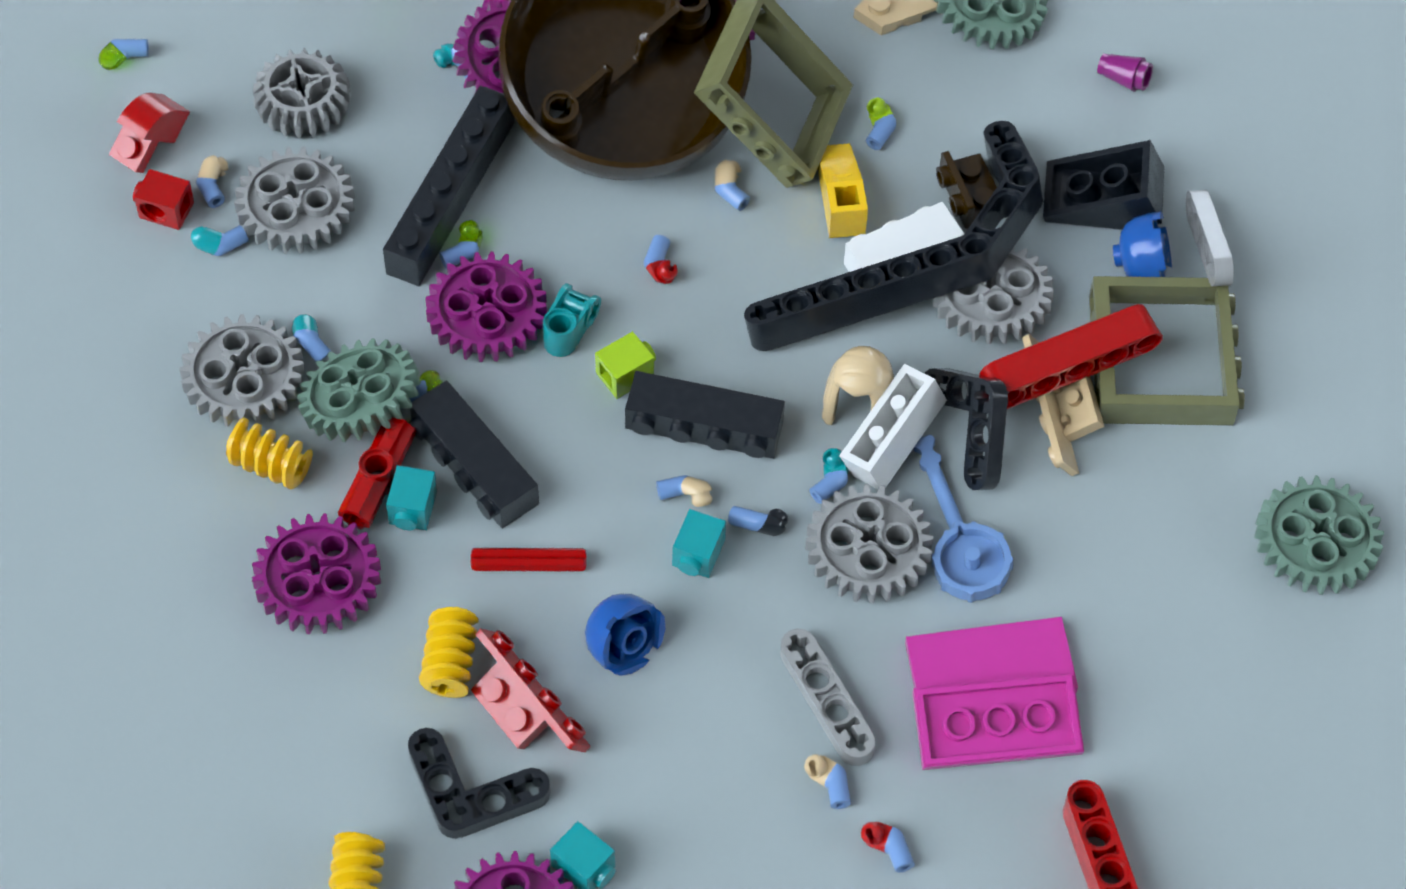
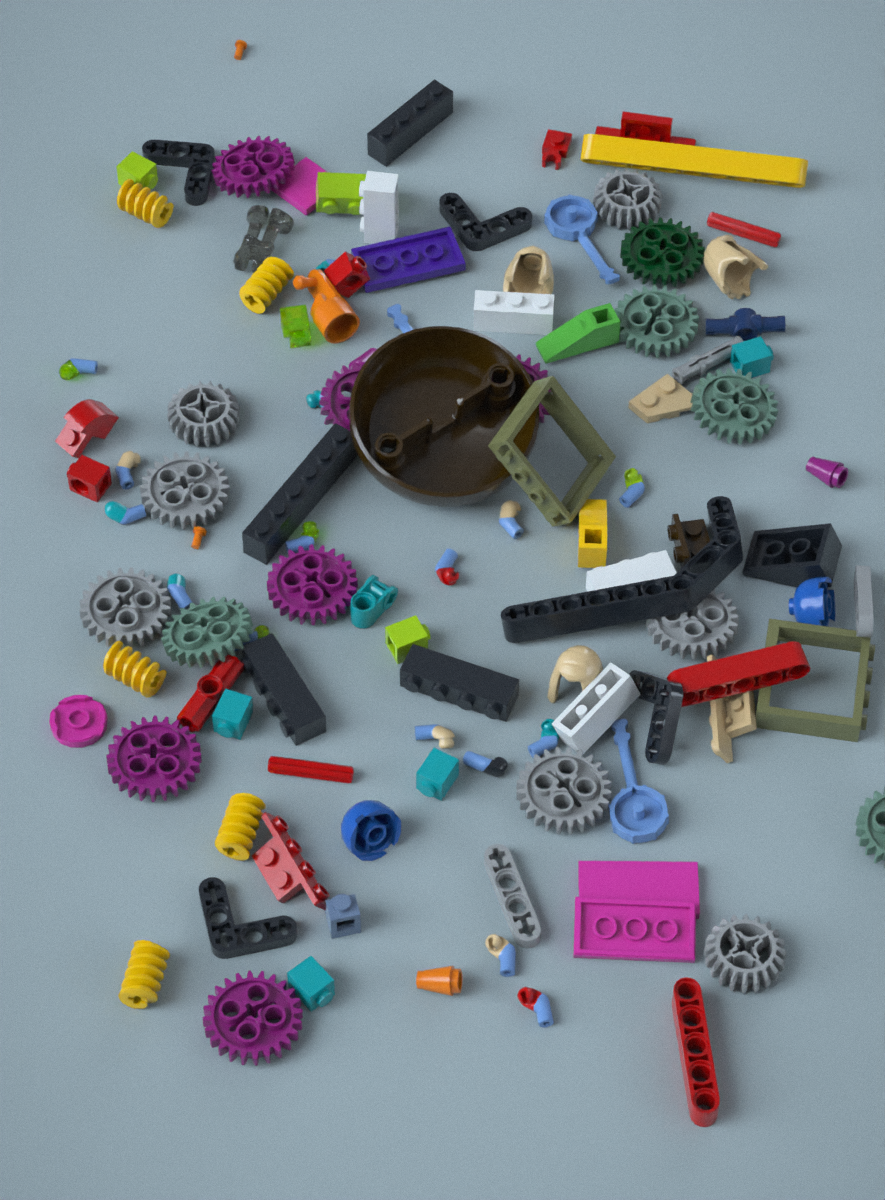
camera: 10 degrees right, 5 degrees down
(204, 534) = (78, 721): none -> dark pink tile
(322, 254) = (199, 533): none -> orange piece
(605, 751) = (340, 909): none -> sand blue brick
(754, 828) = (440, 980): none -> orange cone
(1144, 713) = (743, 963): none -> light grey gear

